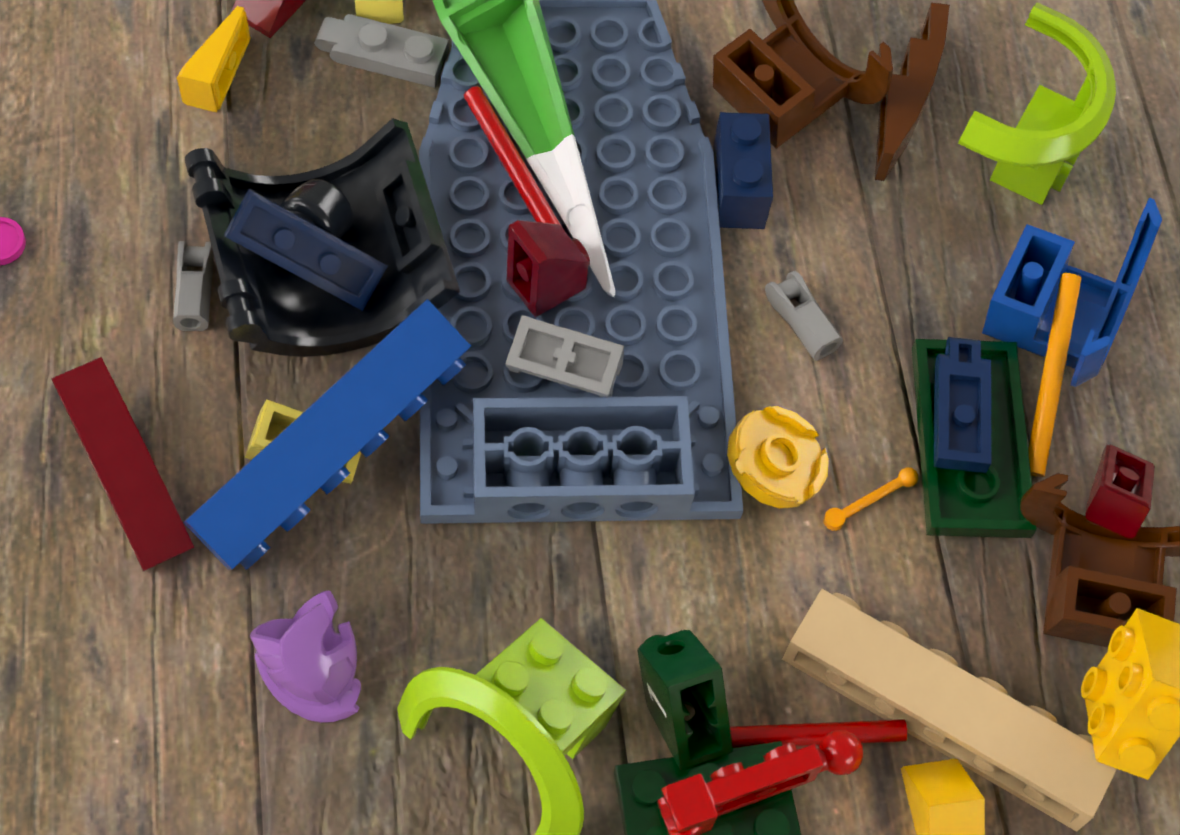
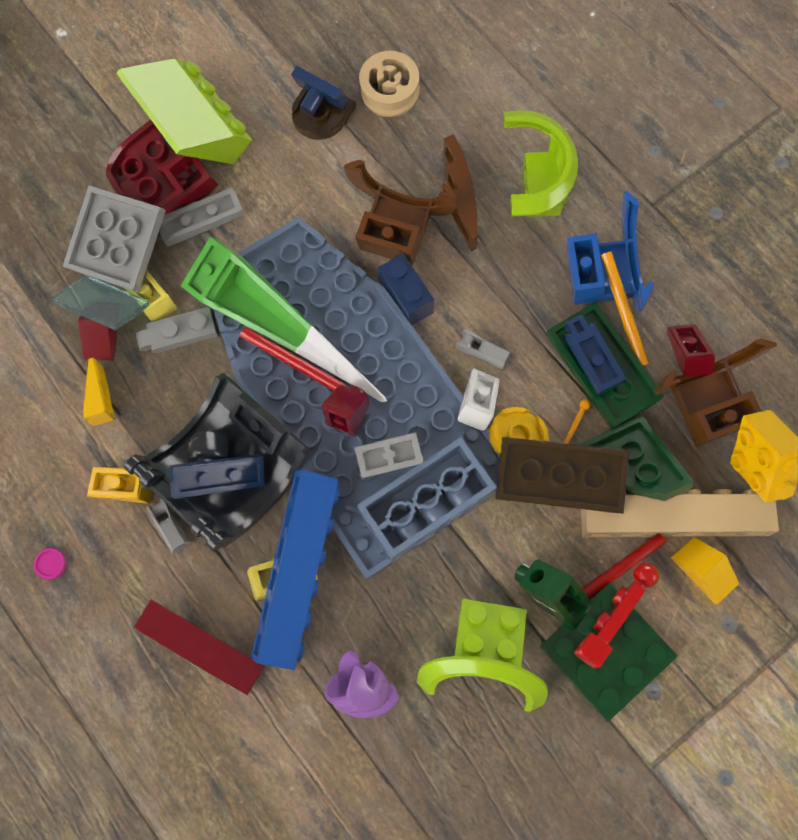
camera: 20 degrees left, 10 degrees up
(163, 196) = (117, 485): none -> yellow slope
(750, 374) = (479, 400): none -> white slope
(805, 537) = (563, 475): none -> dark brown tile
(922, 584) = (651, 465): none -> dark green plate

